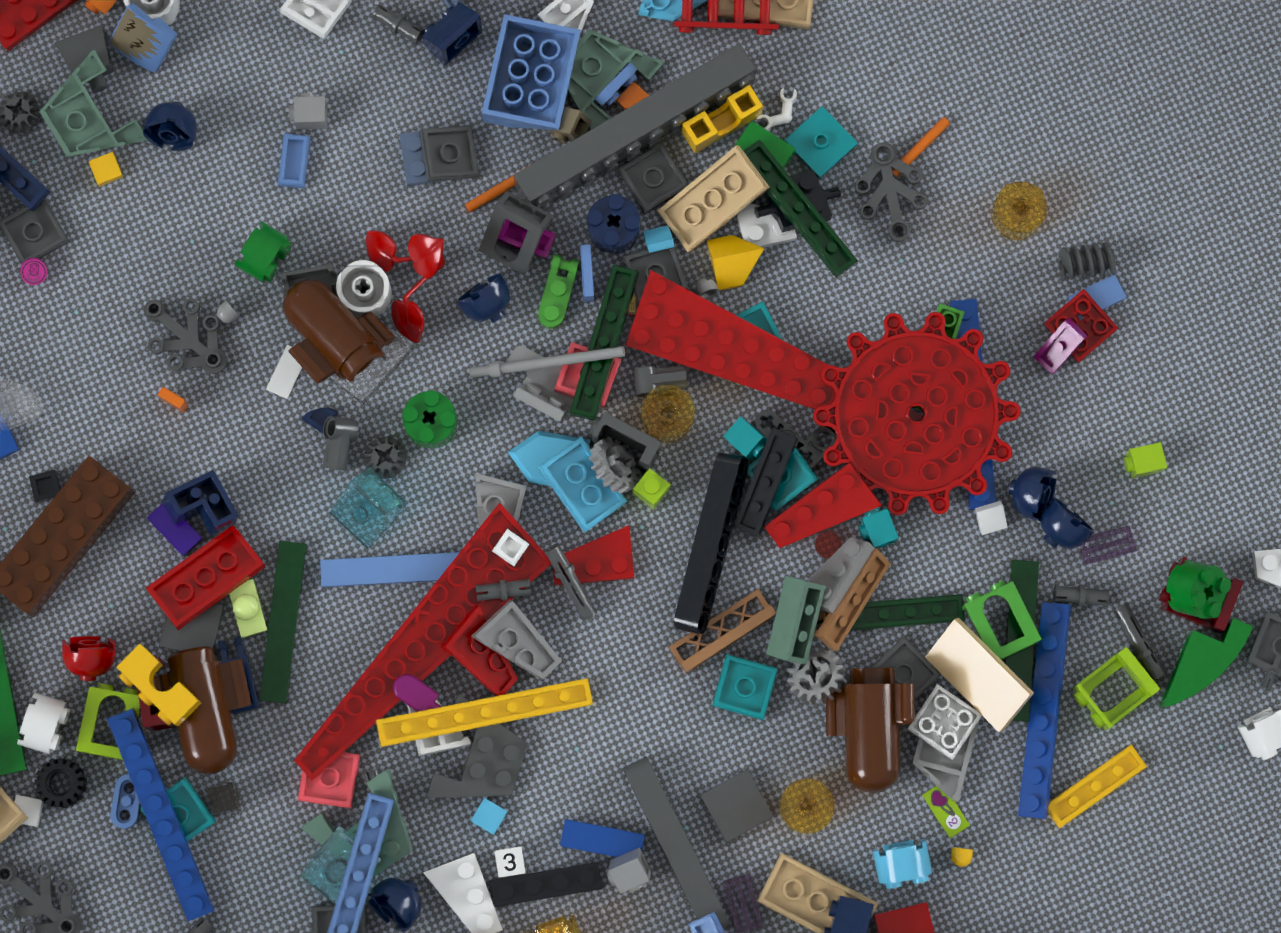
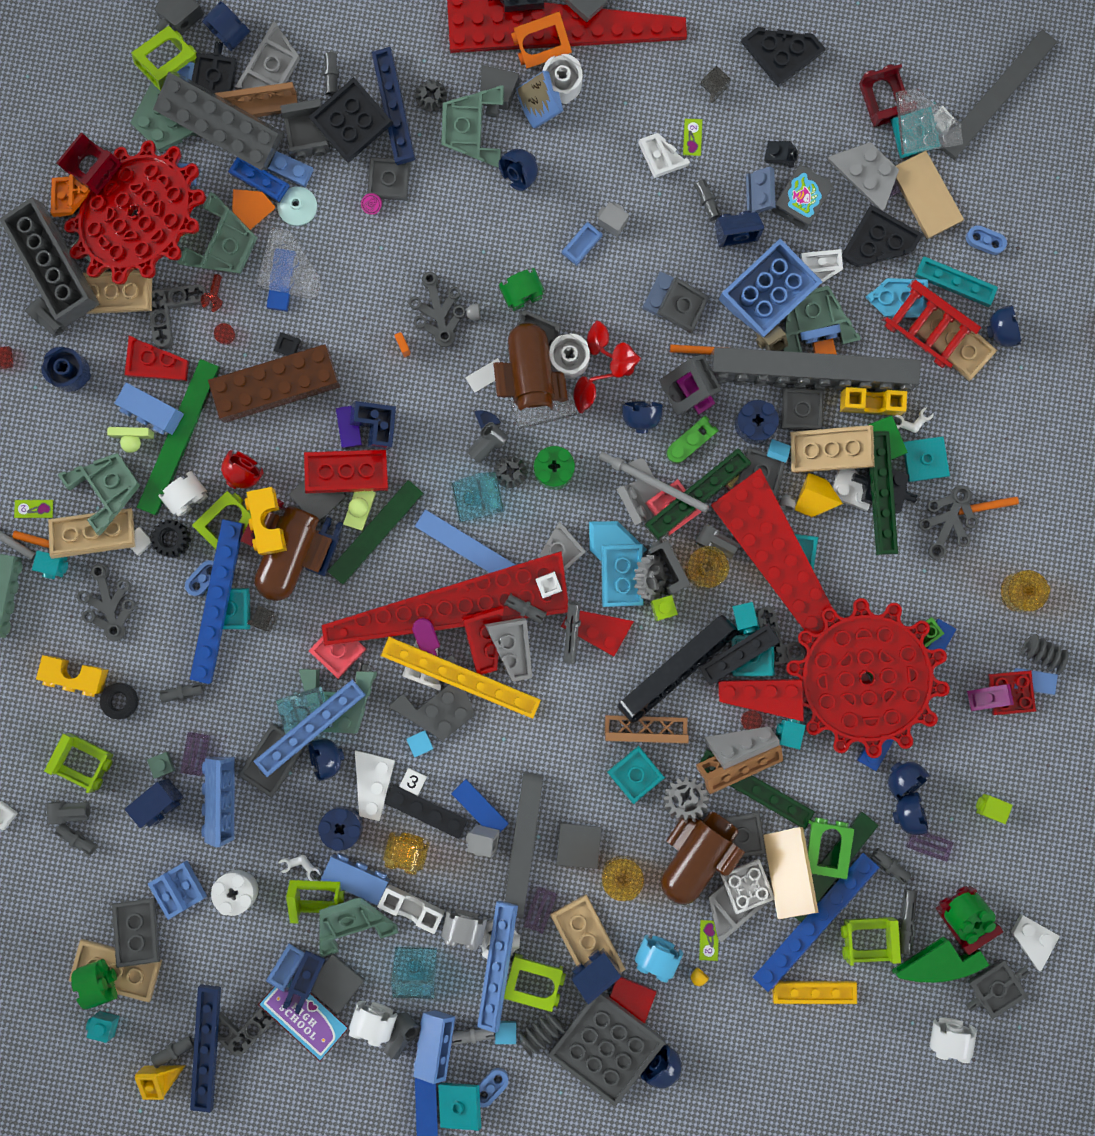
camera: 35 degrees right, 5 degrees up
(105, 169) = (460, 169): yellow tile -> none
(587, 276) = (717, 442): medium blue tile -> none
(796, 620) = (697, 757): sand green brick -> none
(991, 517) = (868, 776): white tile -> none

